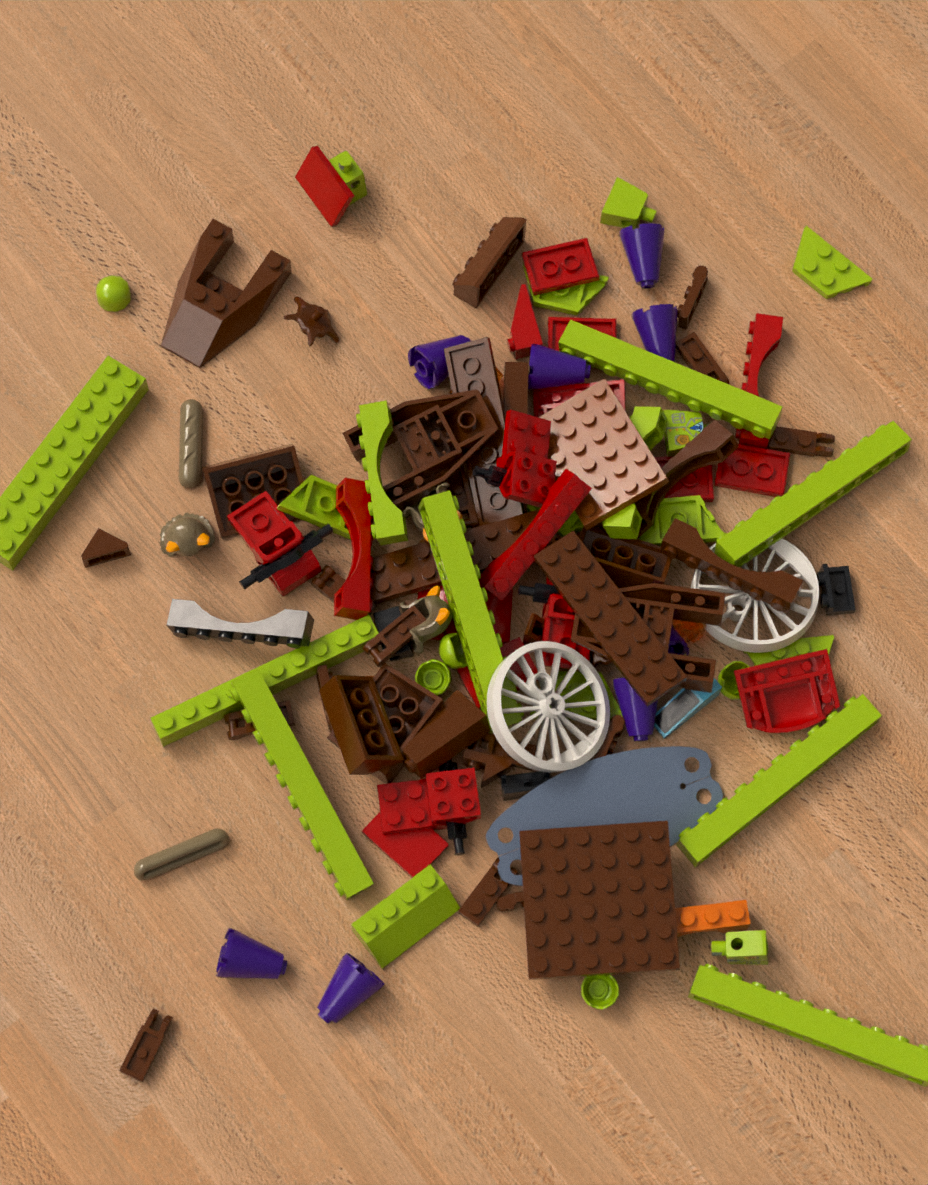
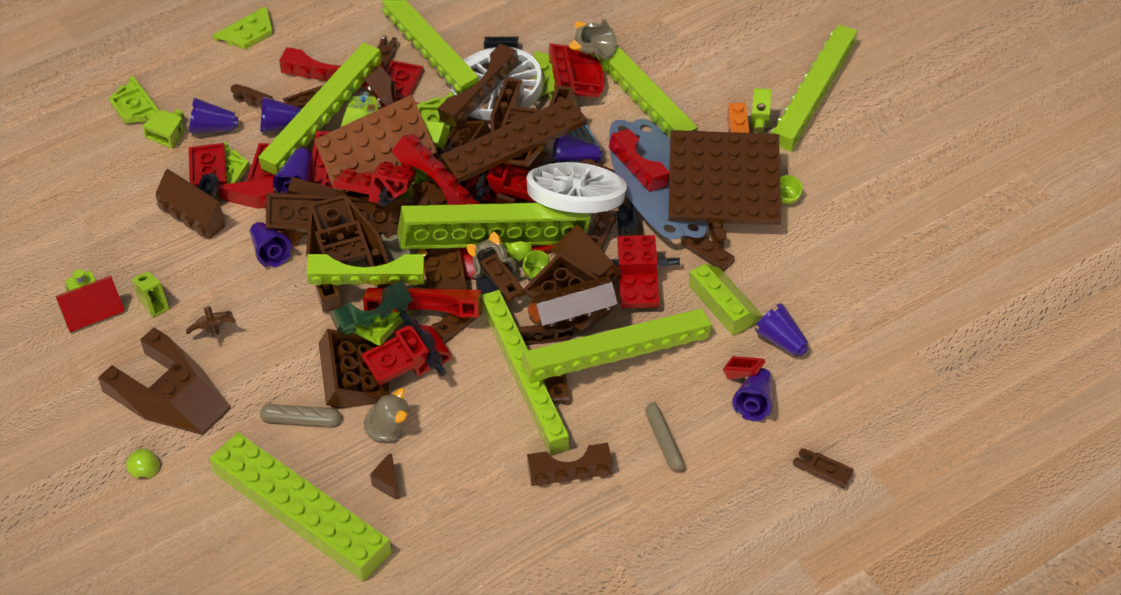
camera: 80 degrees left, 20 degrees down
(126, 719) = (545, 469): none -> reddish brown arch
(285, 627) = (463, 414): arch -> none
(290, 929) = (742, 367): none -> red slope
(304, 466) = (349, 317): none -> clear green arch
(349, 245) = (146, 287): none -> lime torso
(408, 849) = (672, 294): red tile -> none
(492, 765) = (609, 240): reddish brown slope -> none
(516, 274) = (209, 184): none -> black plate
(595, 804) = (651, 174): none -> red arch
(667, 160) = (133, 103): none -> lime wing
(836, 708) = (595, 39): none -> dark tan hair

